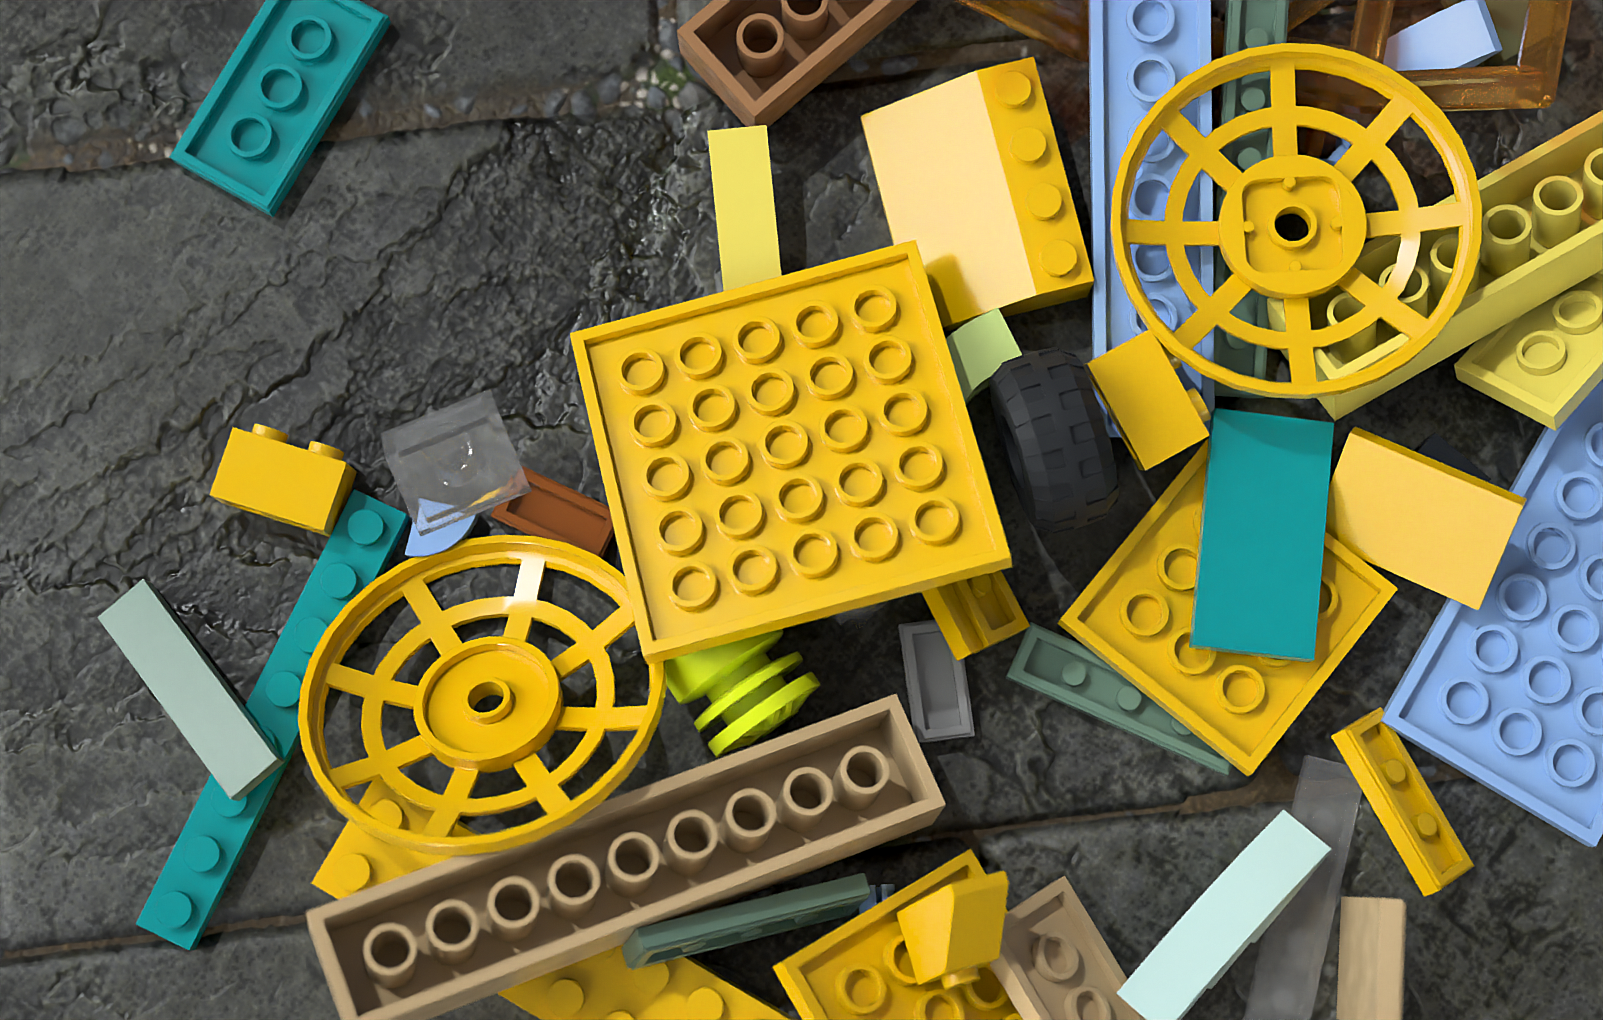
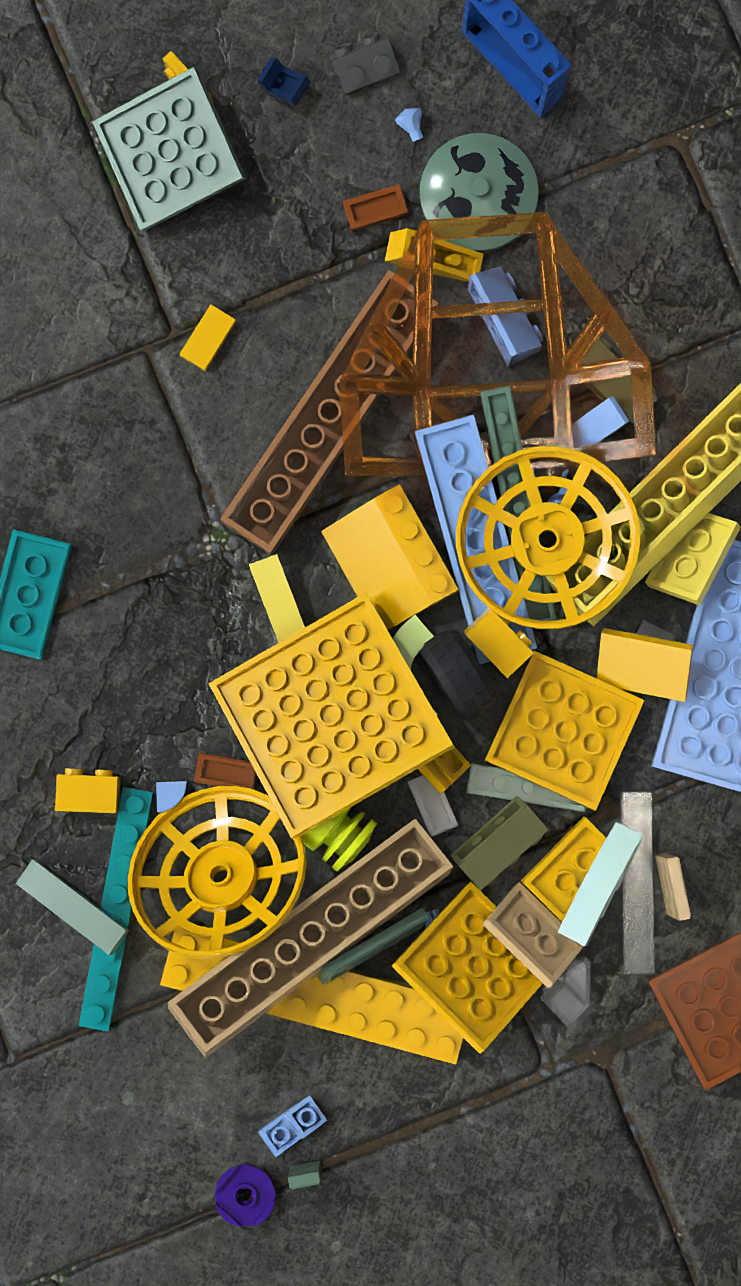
camera: 15 degrees left, 5 degrees up
(454, 462) = (168, 760): clear slope -> none
(956, 930) = (473, 925): yellow slope -> none
(1046, 788) = (499, 843): none -> olive brick
(1160, 872) = (564, 867): none -> yellow wing
(1262, 535) = (571, 692): teal tile -> none
(1403, 802) = (672, 802): yellow tile -> none

